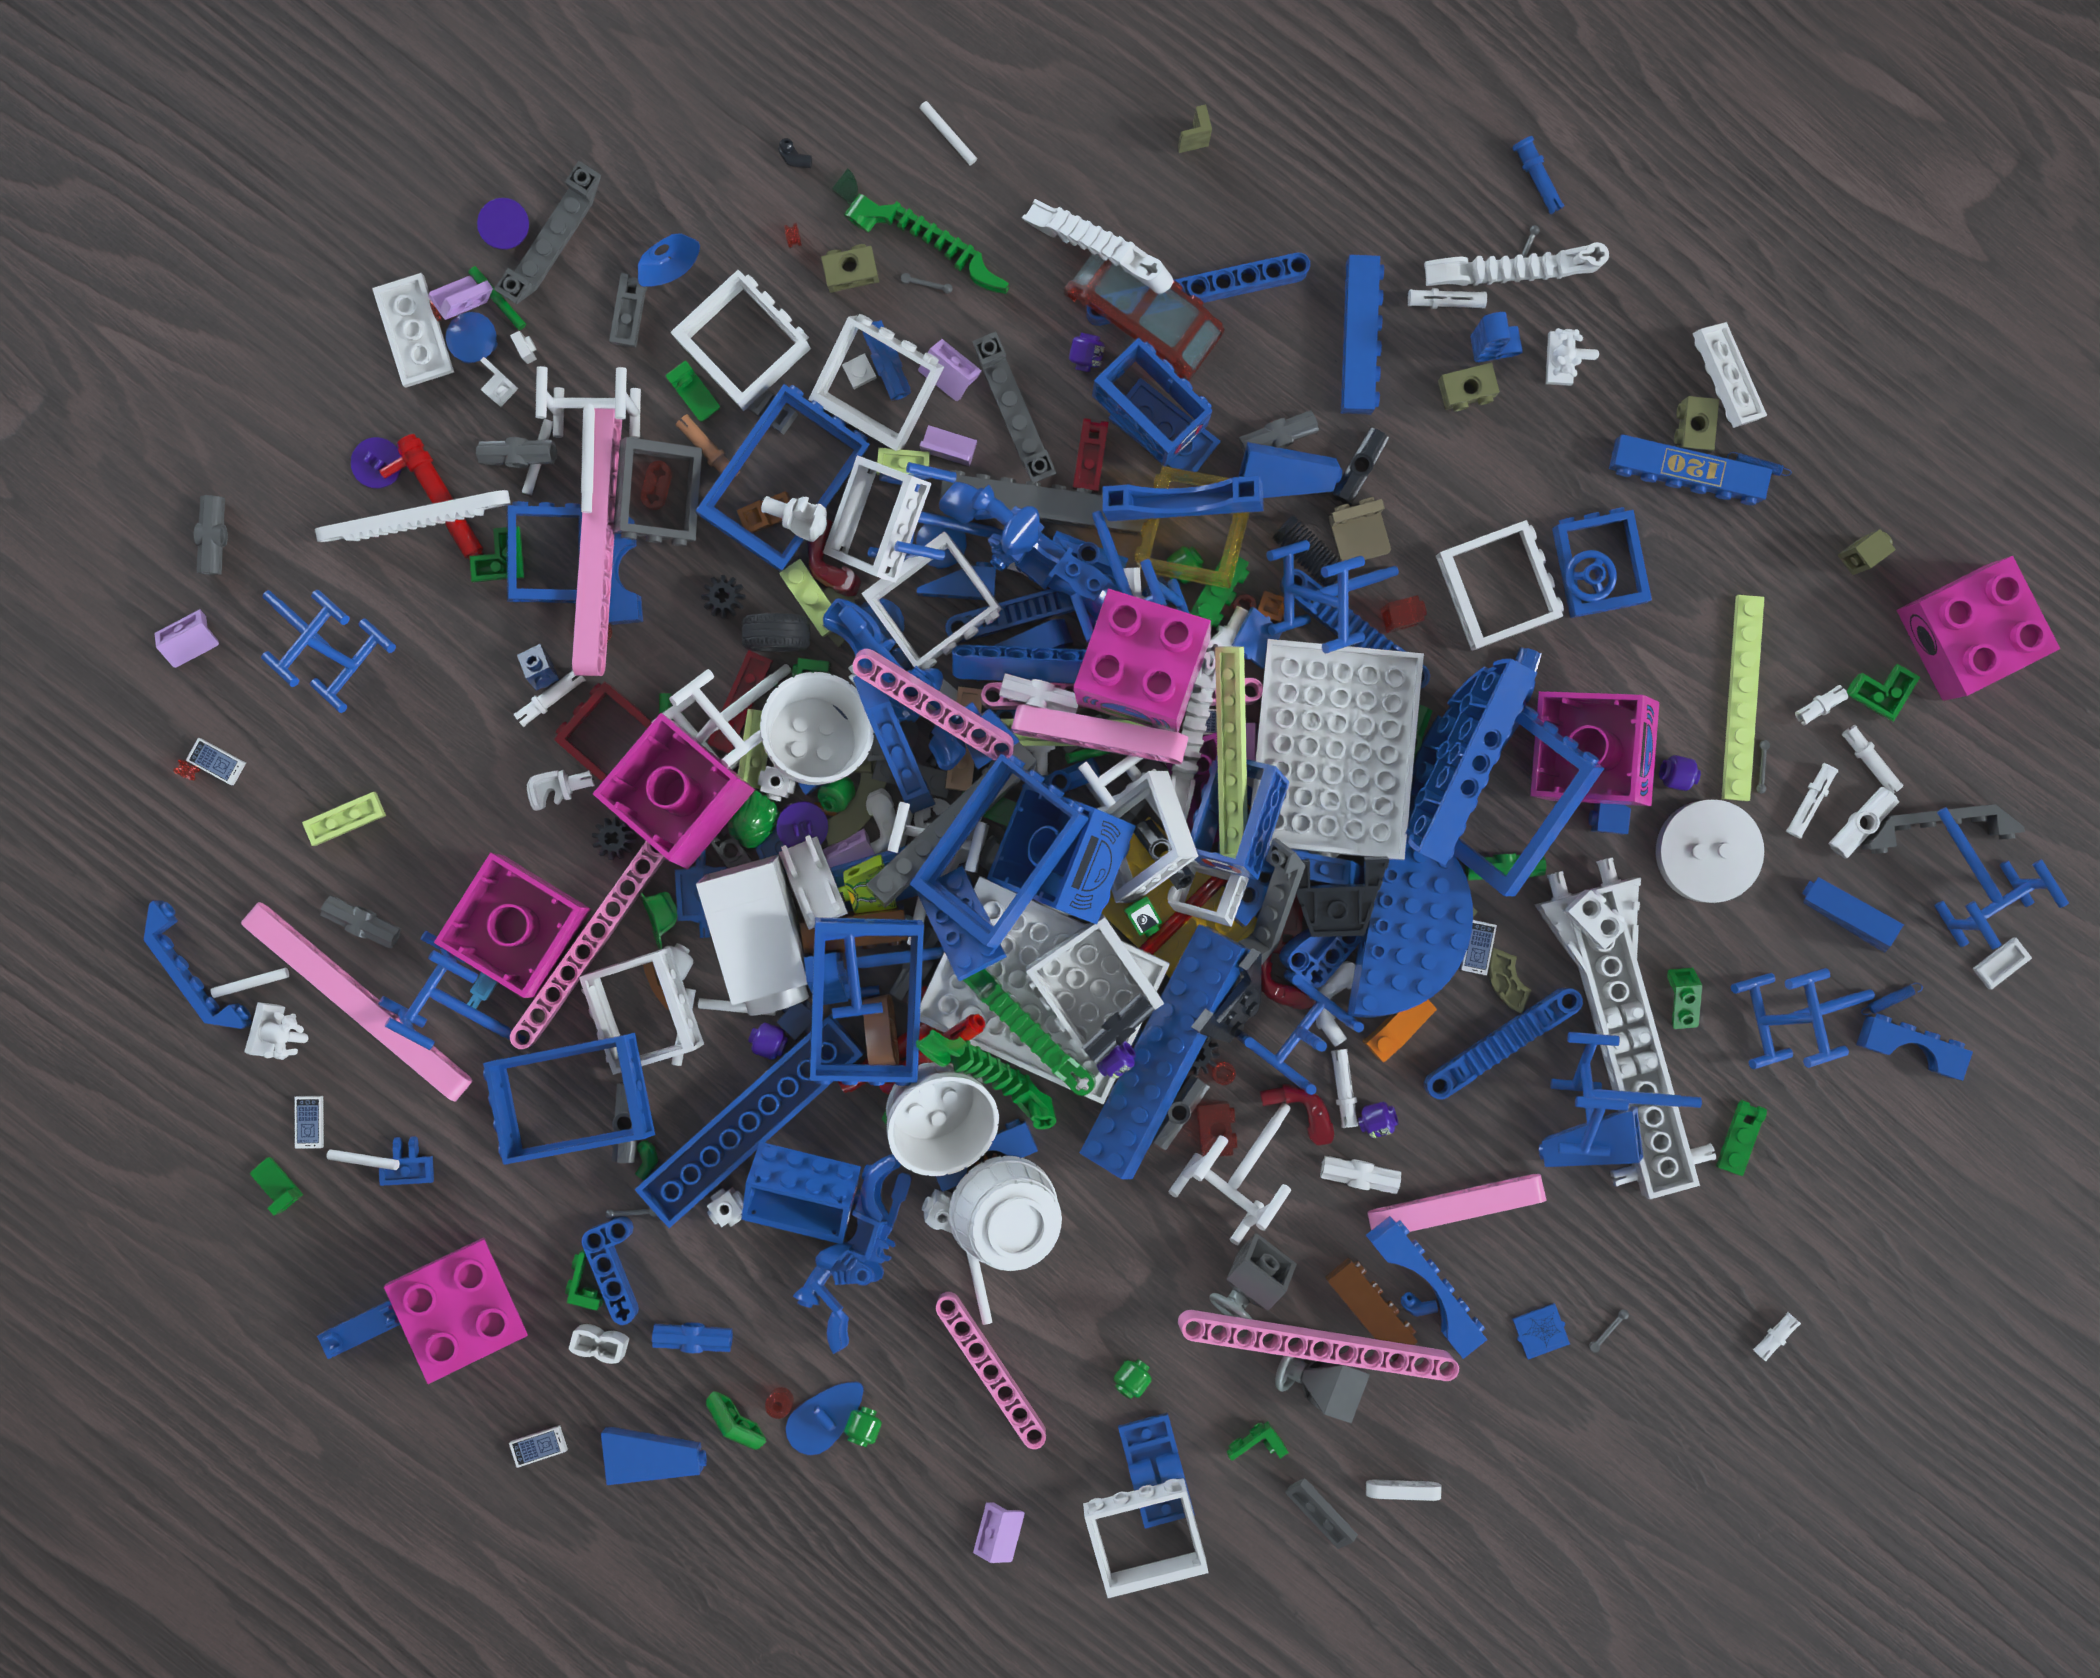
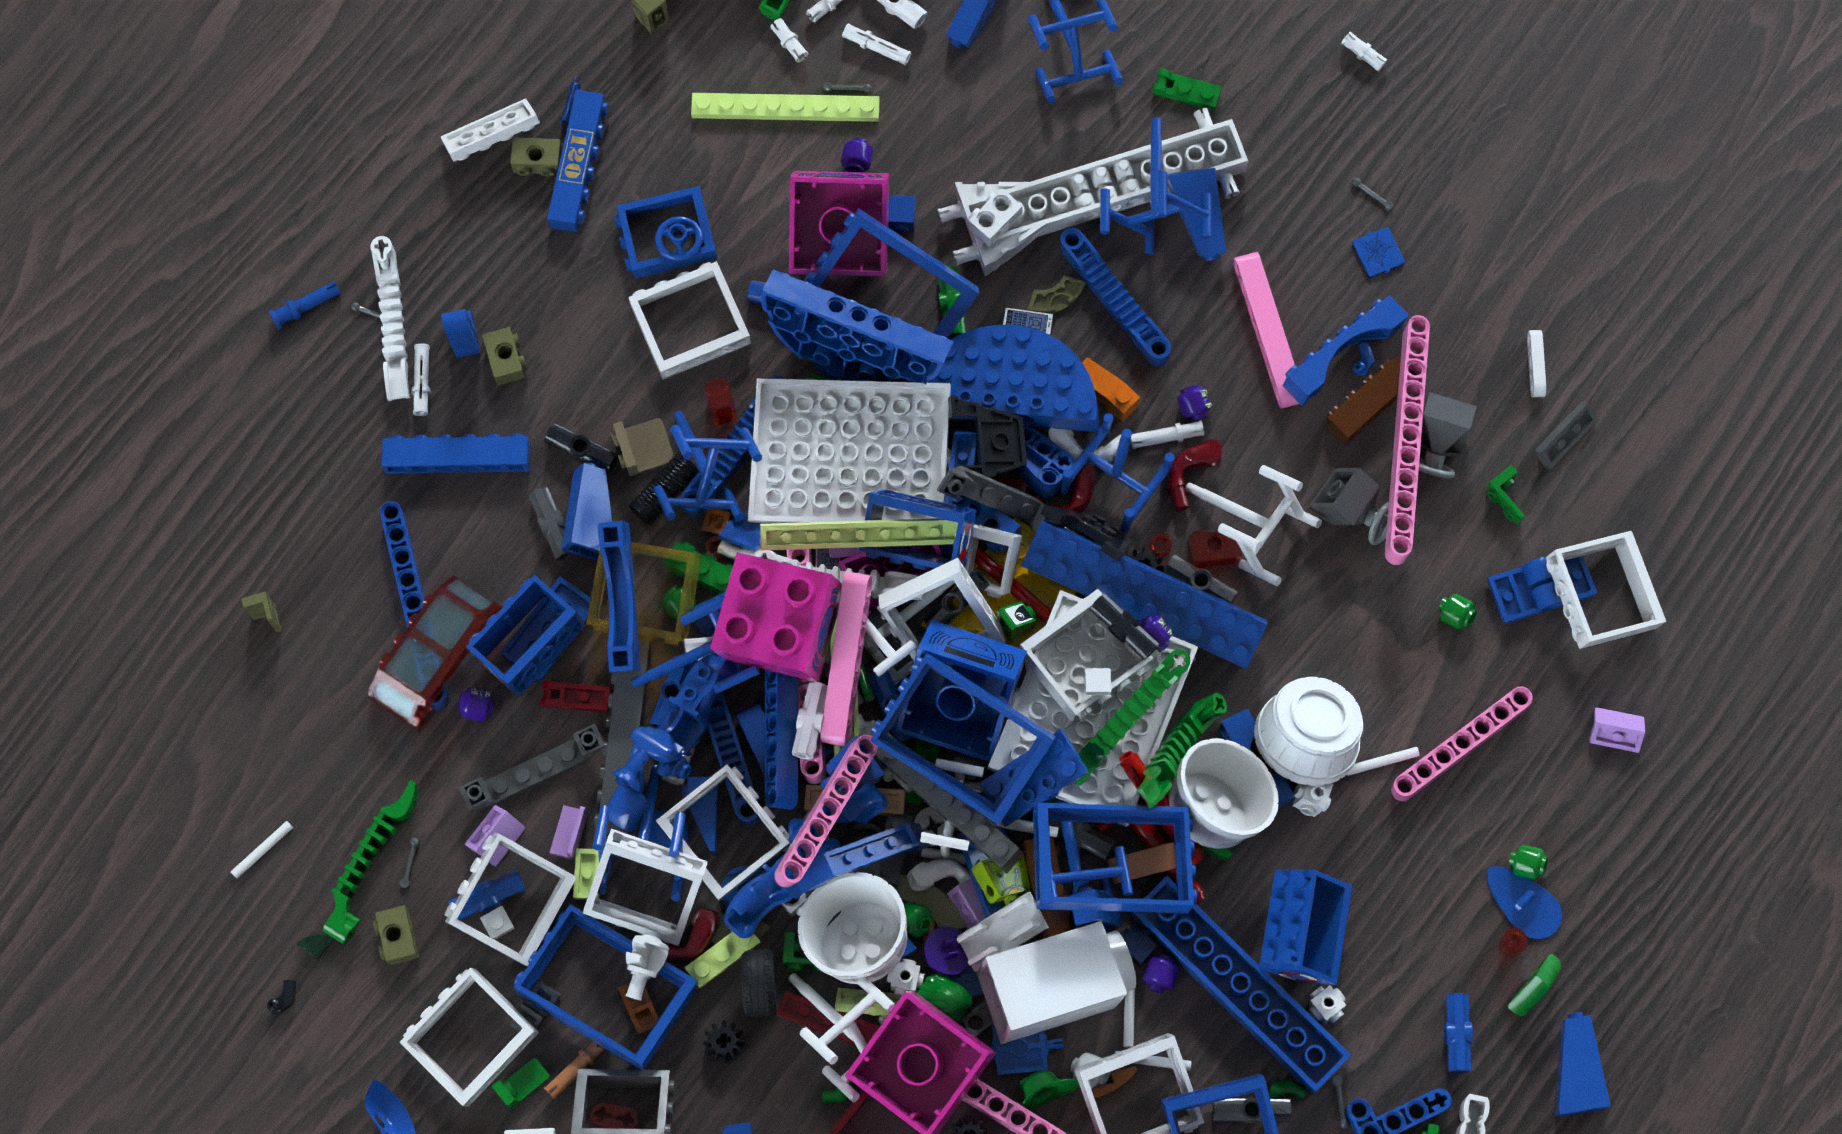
camera: 90 degrees left, 15 degrees down
(793, 235) = (363, 993): clear red bush -> none
(860, 1257) = (1365, 873): blue piece -> none
(1060, 996) = (1097, 681): none -> white tile
(1086, 235) = (356, 724): white piece -> none
(1360, 1174) = (1246, 416): white piece -> none
(1563, 356) = (473, 275): white piece -> none
(1687, 997) = (1061, 139): green bracket -> none
(1709, 851) = (927, 128): white brick -> none

